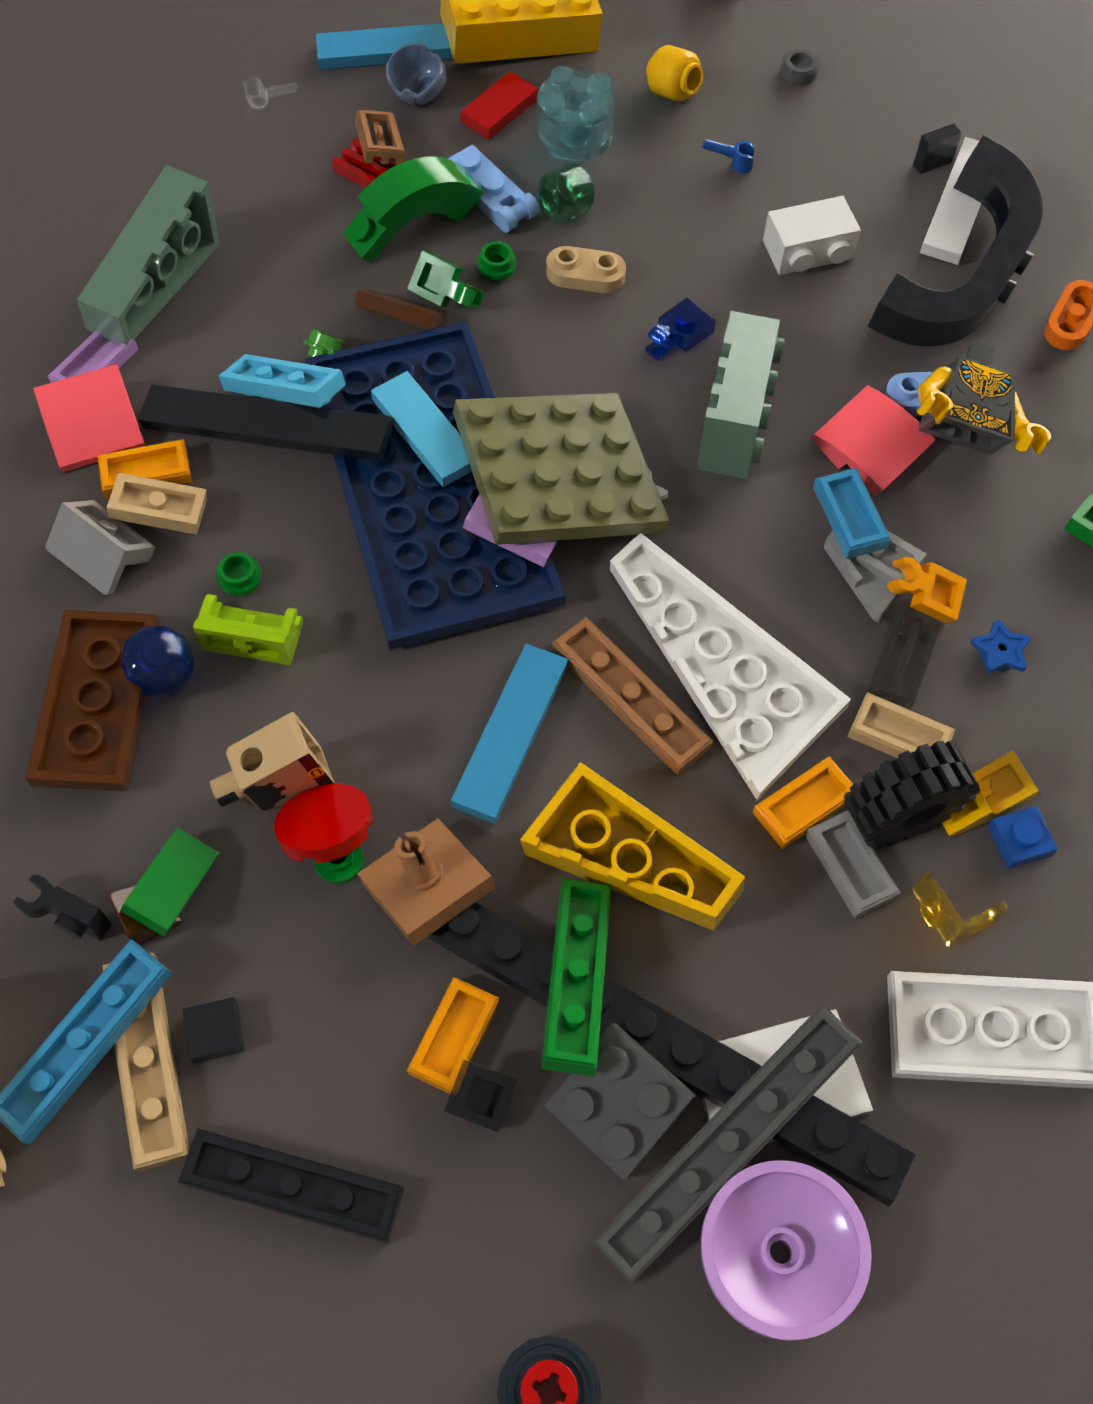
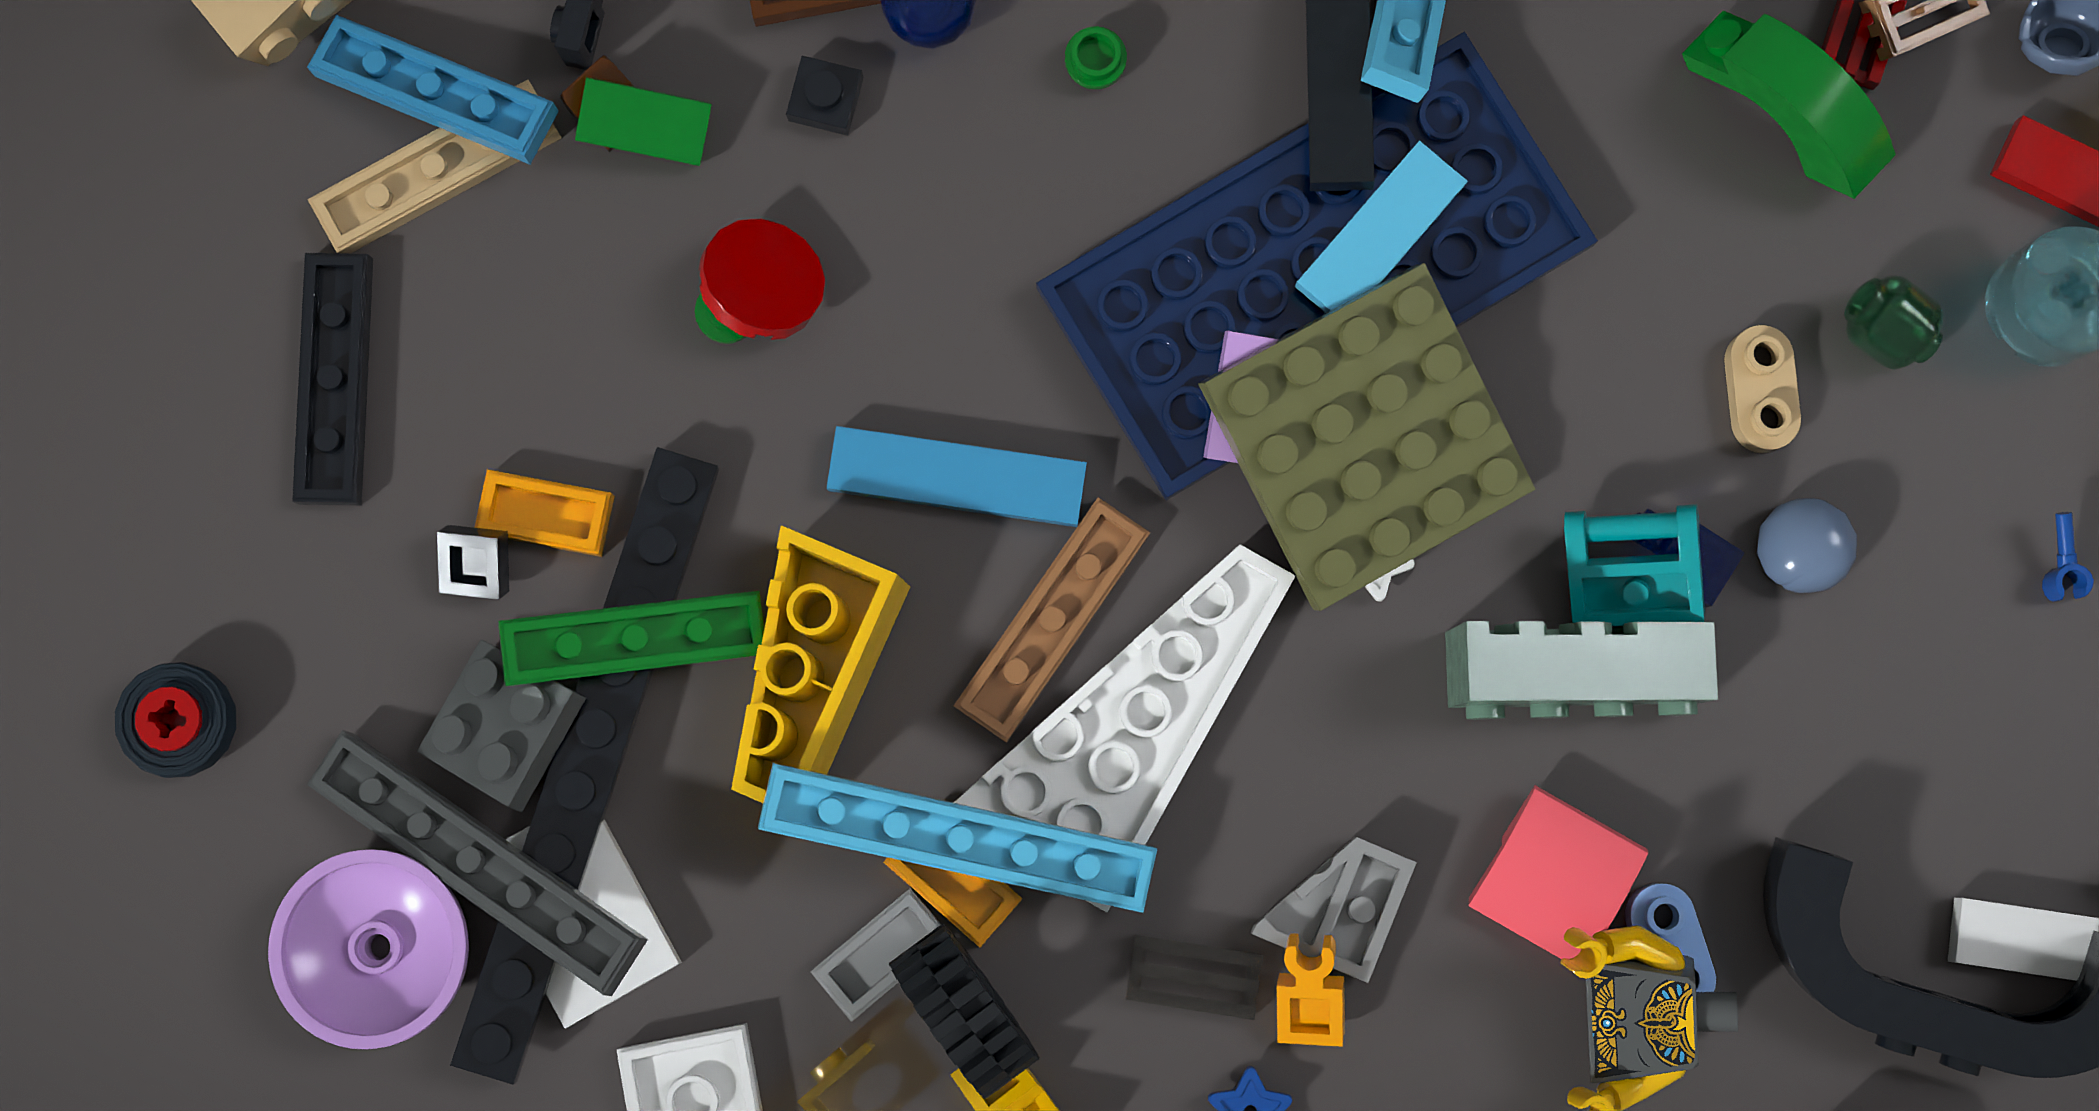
camera: 75 degrees right, 20 degrees up
(197, 756) = (824, 95): none -> black plate
(213, 1030) = (485, 233): black tile -> none
(247, 632) = (1016, 97): lime hinge -> none
(273, 766) = (816, 197): tan torso -> none
(322, 343) = (1502, 48): bright green plate -> none
(399, 309) = (1597, 137): reddish brown tile -> none
(426, 880) = (718, 425): medium nougat tile -> none
(438, 282) = (1663, 178): plate -> none
(496, 261) = (1743, 238): green plate -> none
(498, 190) = (1883, 205): light blue plate -> none
(690, 267) = (1807, 545): none -> sand blue hair
(696, 349) = (1635, 586): none -> teal plate
(780, 777) = (956, 837): none -> medium azure tile
(811, 235) = (1921, 720): white brick -> none
(851, 513) = (1402, 864): dark azure tile -> none
(895, 728) = (1086, 990): tan tile -> none

